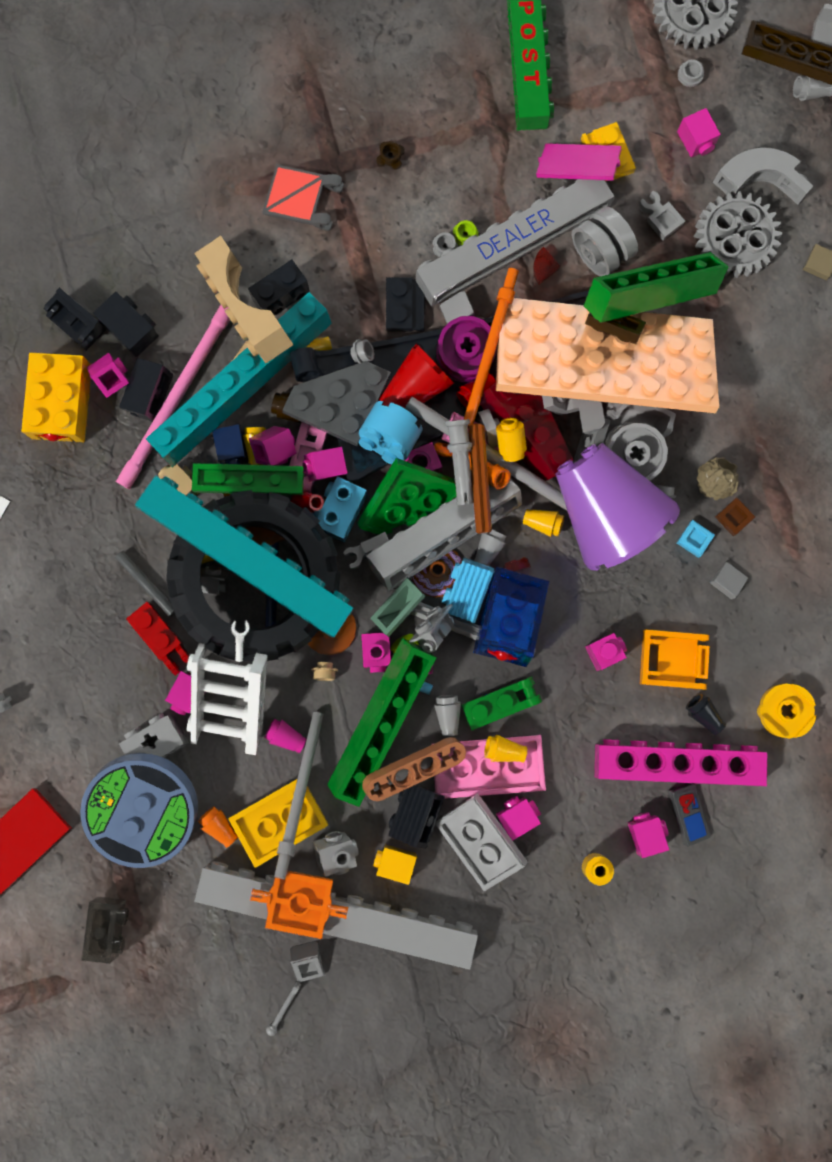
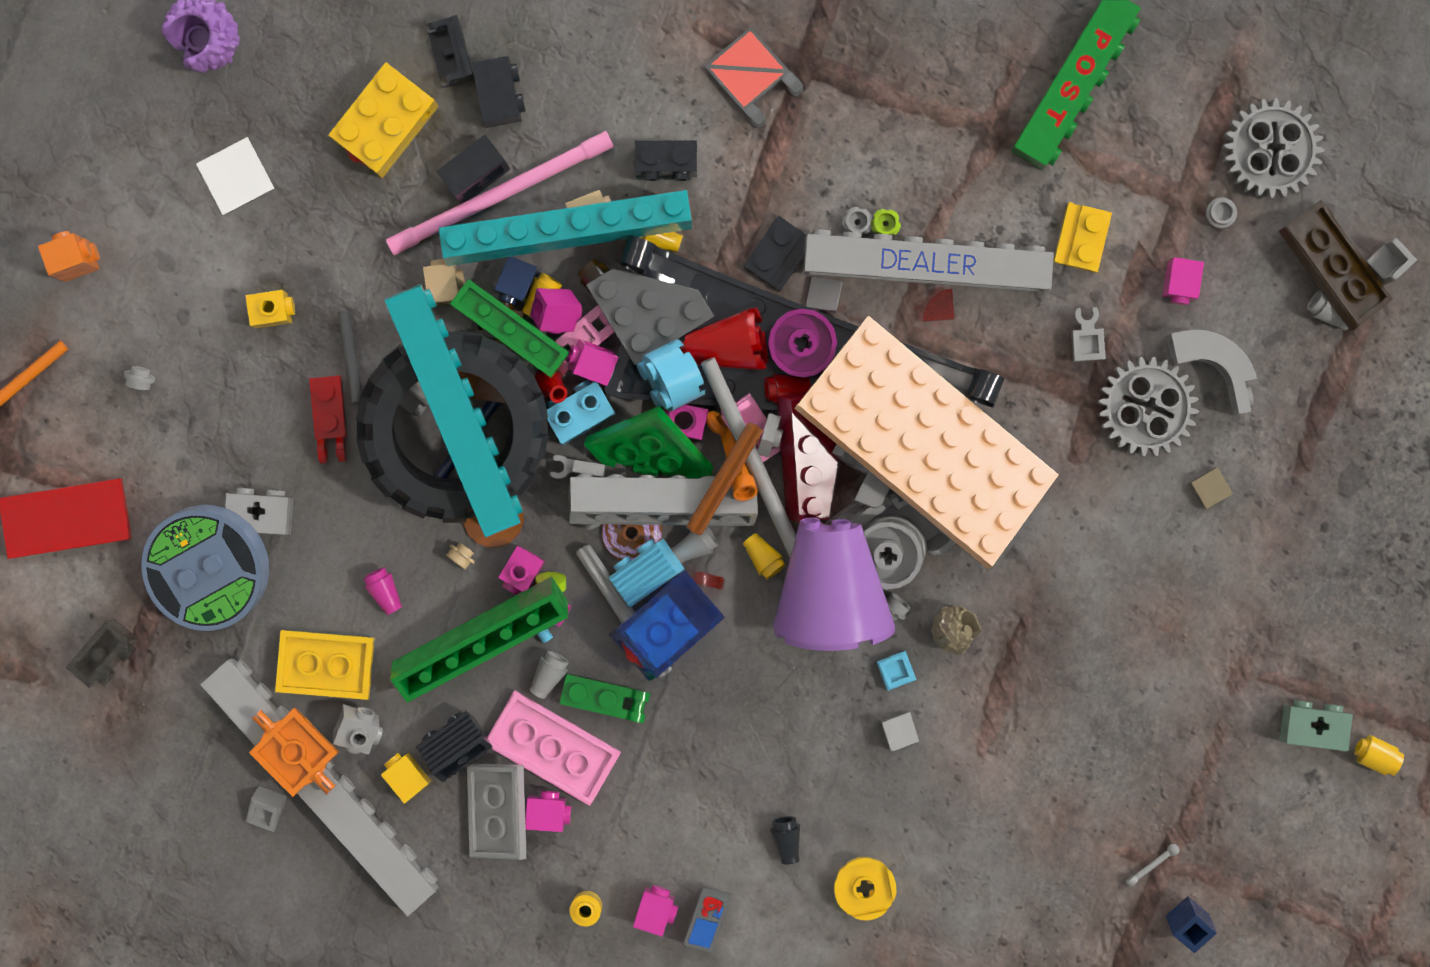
camera: 30 degrees right, 5 degrees up
(62, 587) = (270, 308): none -> yellow brick
(108, 374) = (447, 132): dark pink brick -> none
(181, 694) = (319, 488): dark pink brick -> none
(217, 826) = (265, 627): orange cone -> none
(239, 639) = (398, 481): white hand -> none
(252, 693) = (378, 535): white fence -> none
(258, 325) = (614, 201): tan arch -> none
(272, 1029) = (193, 846): light grey hinge -> none
(287, 847) = (316, 694): light grey bar -> none
(362, 351) = (701, 277): light grey plate -> none
(390, 148) = (858, 94): dark brown plate -> none
(397, 607) = (567, 544): sand green slope -> none
(415, 773) = (479, 708): nougat beam -> none
(434, 628) = (586, 588): light grey hinge -> none
(460, 448) = (724, 437): light grey pin -> none
(504, 750) = (575, 742): yellow cone -> none
(505, 297) = (868, 322): orange bar -> none
(511, 439) = (779, 462): yellow brick -> none
(579, 161) = (1043, 230): dark pink piece -> none
(604, 241) = (1008, 328): light grey wheel -> none
(606, 651) = (735, 718): dark pink brick -> none
(625, 328) = (953, 419): dark brown plate -> none
(654, 286) = (1018, 410): green brick -> none
(677, 659) = (799, 771): light orange container -> none
(735, 516) = (947, 676): reddish brown plate -> none
(751, 771) = (787, 921): dark pink brick -> none

